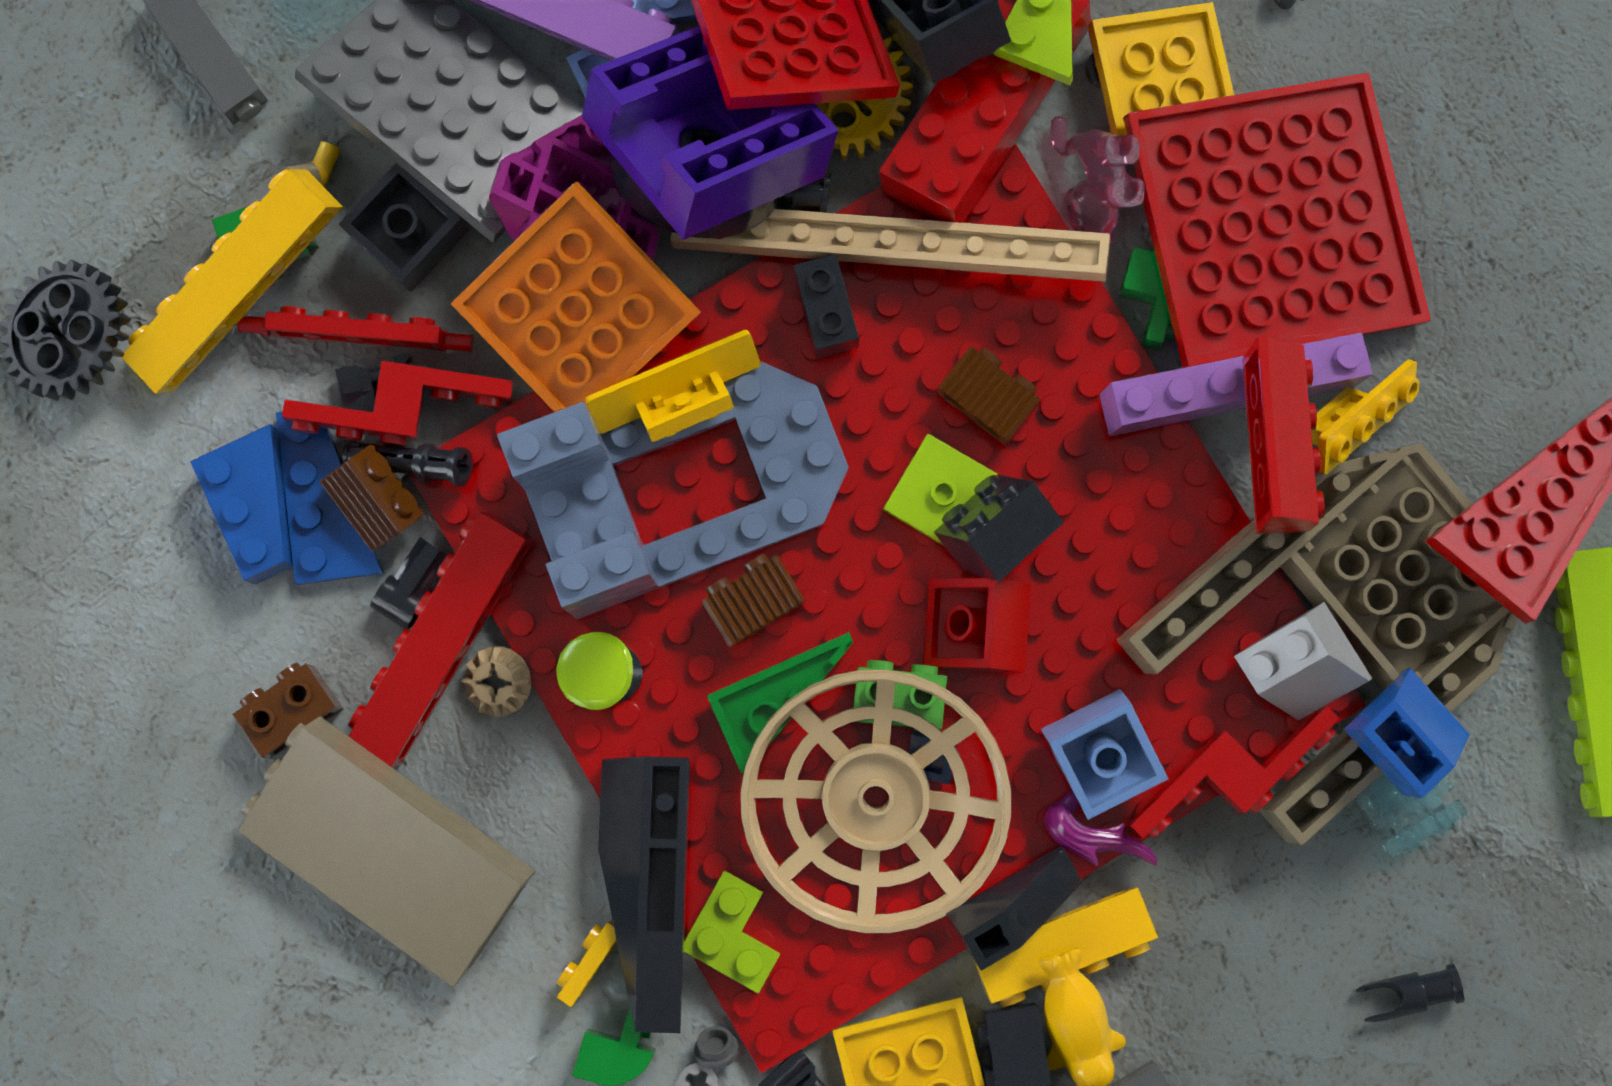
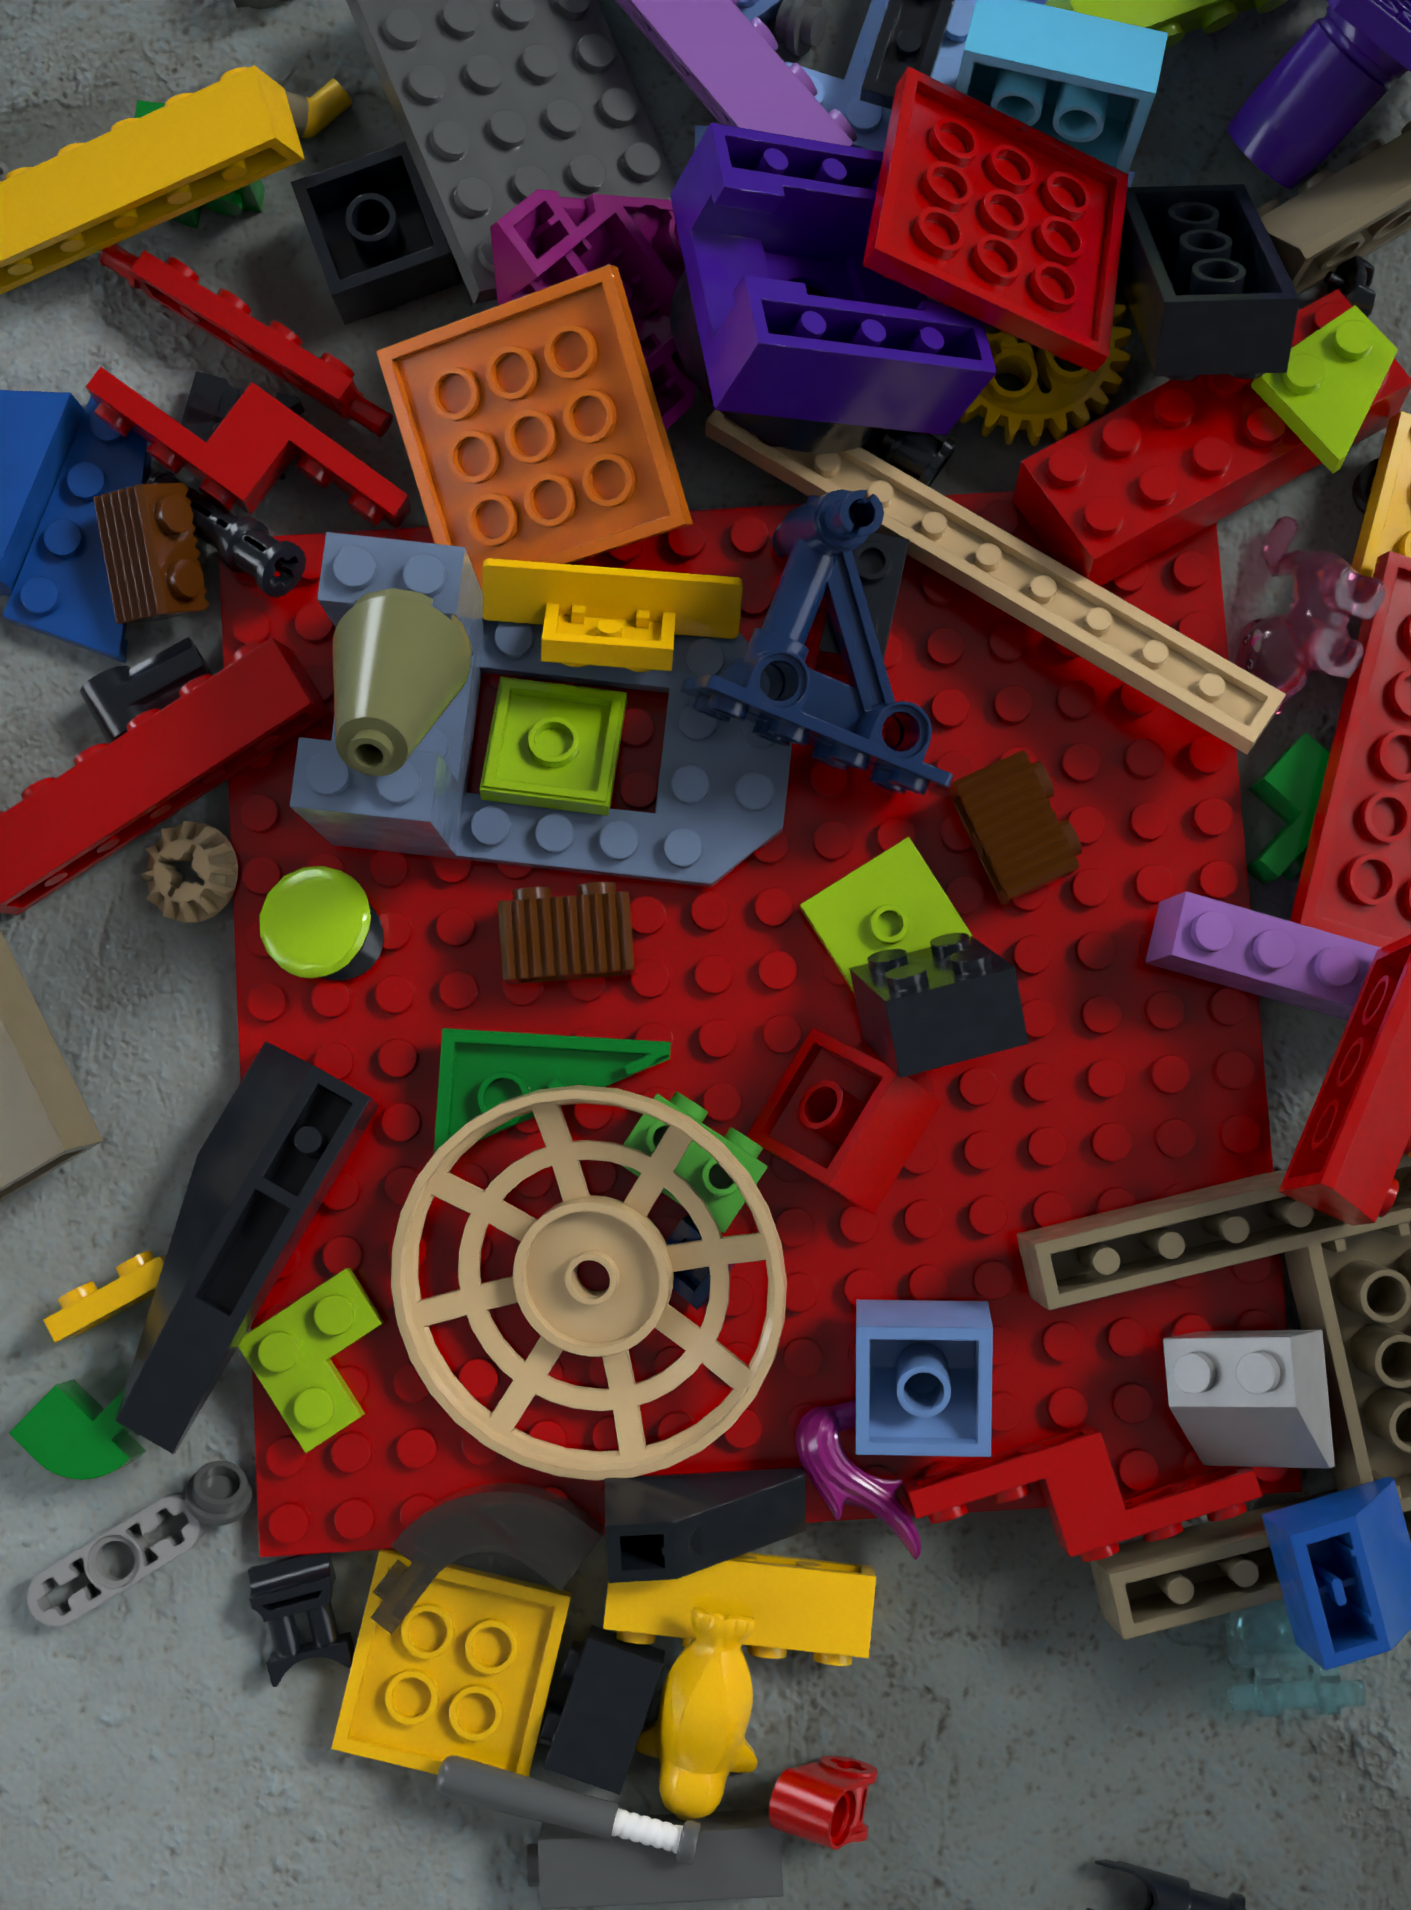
camera: 25 degrees right, 0 degrees up
(582, 499) = (394, 676): none -> olive cone
(683, 489) = (553, 746): none -> lime plate
(855, 385) = (804, 704): none -> dark blue plate
(898, 968) = (498, 1518): none -> clear smoke arch
(1175, 1036) = (823, 1801): none -> red piece

